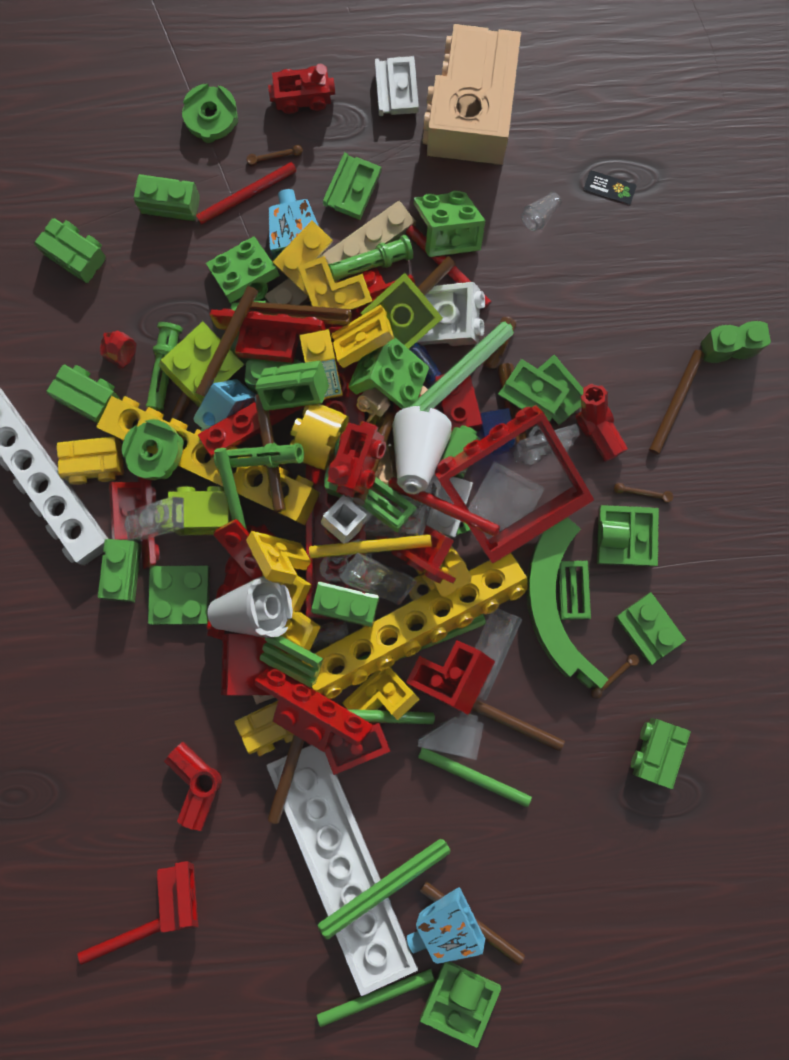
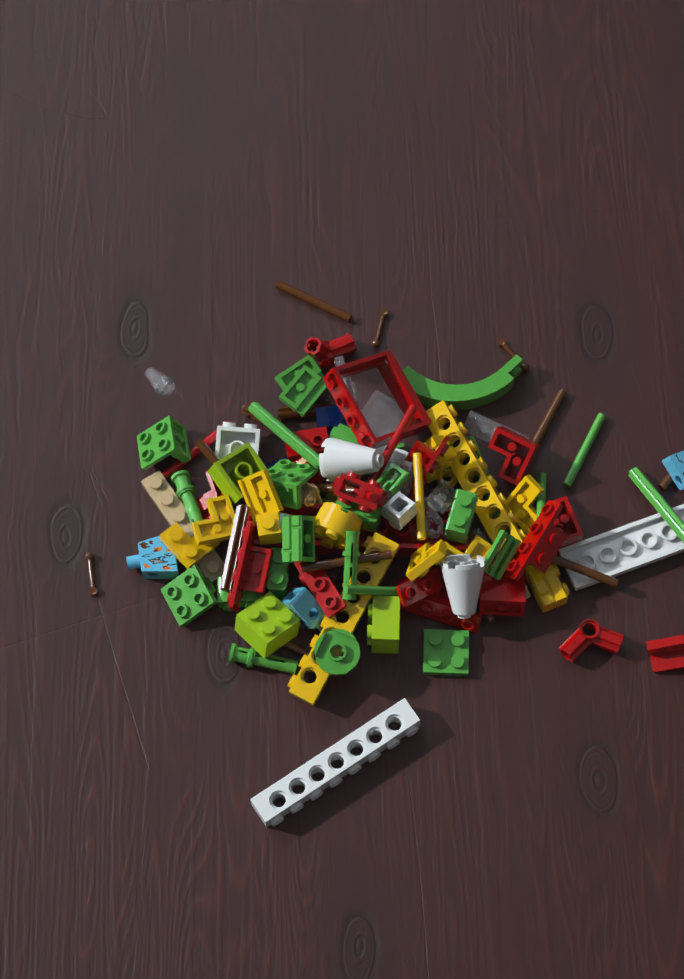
camera: 85 degrees left, 15 degrees down
(70, 250) = (159, 729): bright green brick -> none
(80, 393) = (283, 719): bright green brick -> none
(90, 459) = (336, 714): yellow brick -> none
(117, 348) = (246, 693): red rock -> none
(119, 570) = (427, 691): bright green brick -> none
(126, 497) = (382, 679): red bracket -> none
(155, 519) = (391, 651): clear plate -> none
(166, 197) = (123, 652): bright green brick -> none
(213, 98) = (51, 633): bright green plate -> none
(226, 341) = (257, 593): reddish brown bar -> none
(246, 193) = (122, 596): red bar -> none
(301, 88) = (40, 546): red brick -> none
(352, 186) = (125, 514): bright green plate -> none
(396, 86) = (45, 479): white plate -> none
(455, 736) = (555, 459): clear slope -> none
(473, 96) = (67, 418): light nougat piece -> none
(574, 615) = (451, 378): bright green tile -> none
(610, 187) = (142, 335): black sticker -> none
(627, 536) = (412, 338): bright green plate -> none
(650, 628) = (479, 329): bright green plate -> none
(660, 752) = (567, 327): bright green brick -> none
(735, 341) = (273, 258): bright green brick -> none

